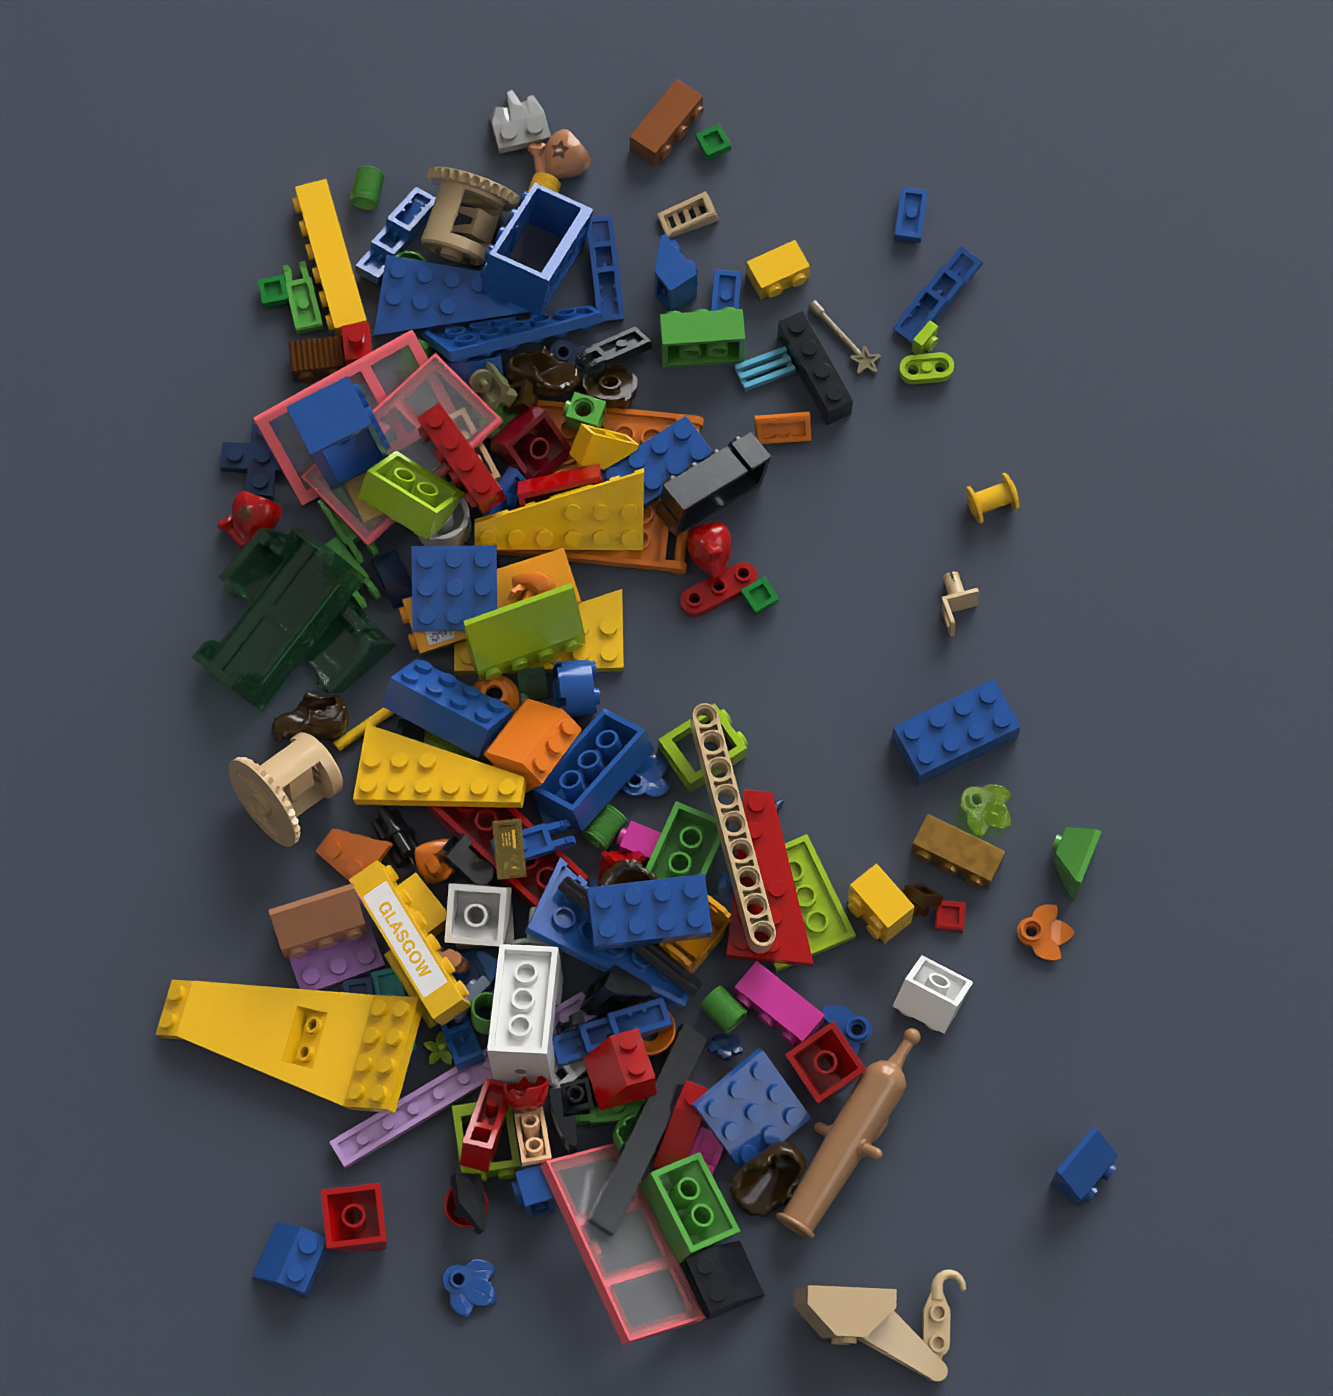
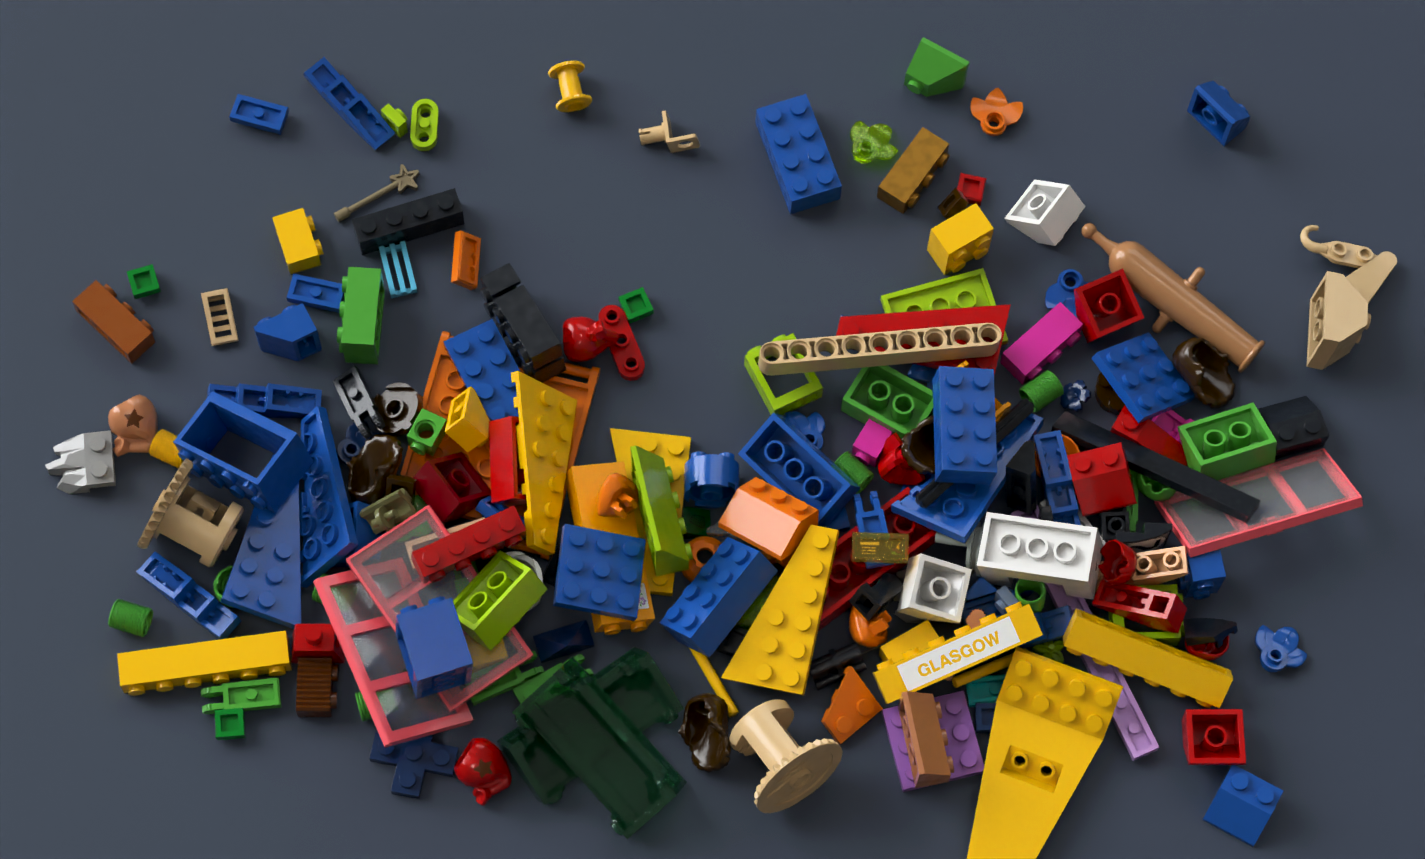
camera: 85 degrees left, 0 degrees up
(433, 1140) = (1147, 658): none -> yellow brick

